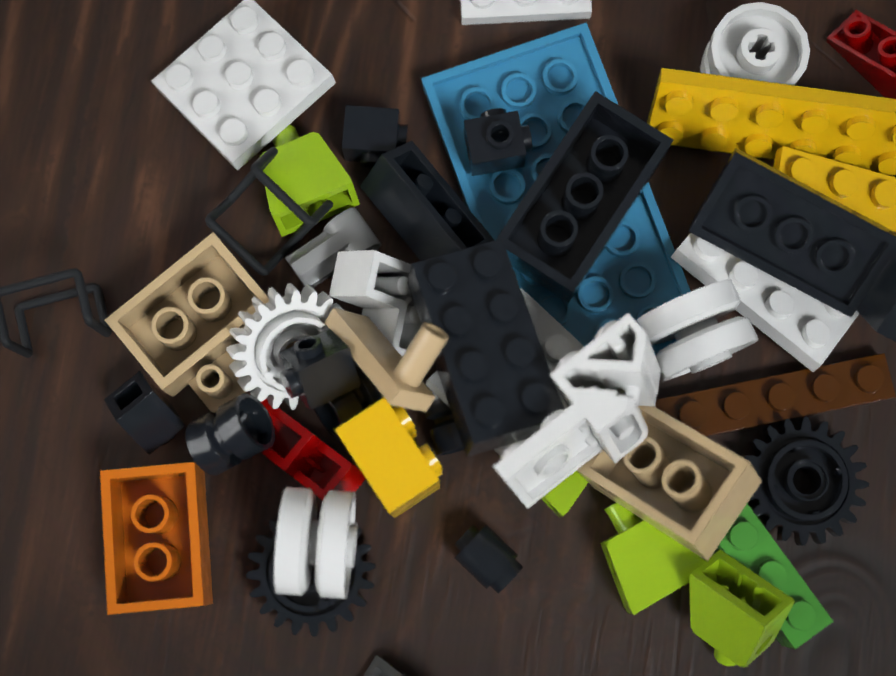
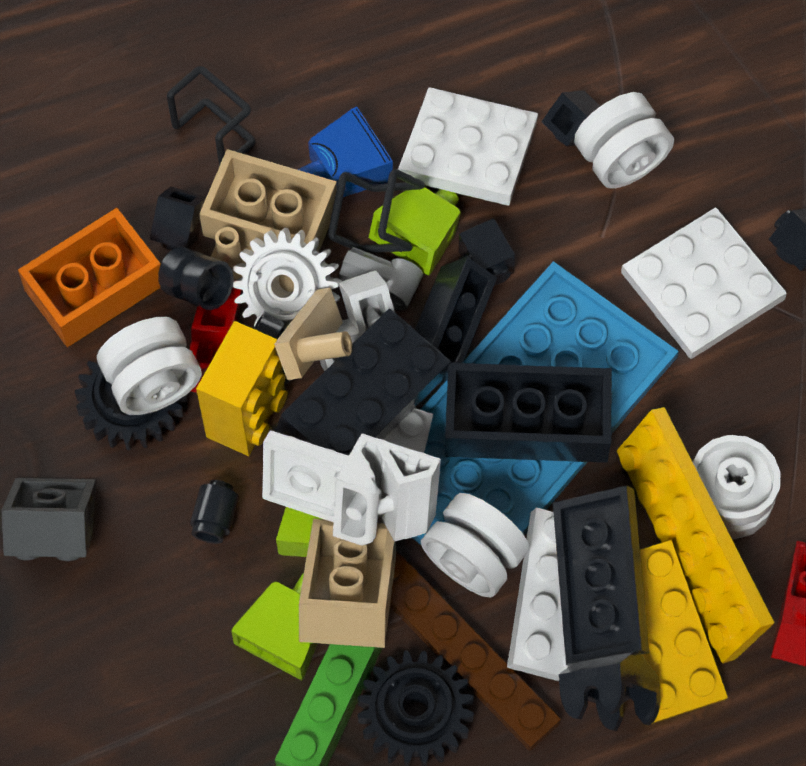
camera: 60 degrees right, 15 degrees down
(176, 202) = (351, 148): none -> blue torso
(318, 369) = (276, 299): black brick -> none
(496, 141) = (533, 333): black brick -> none
(735, 609) = (274, 714): lime torso -> none

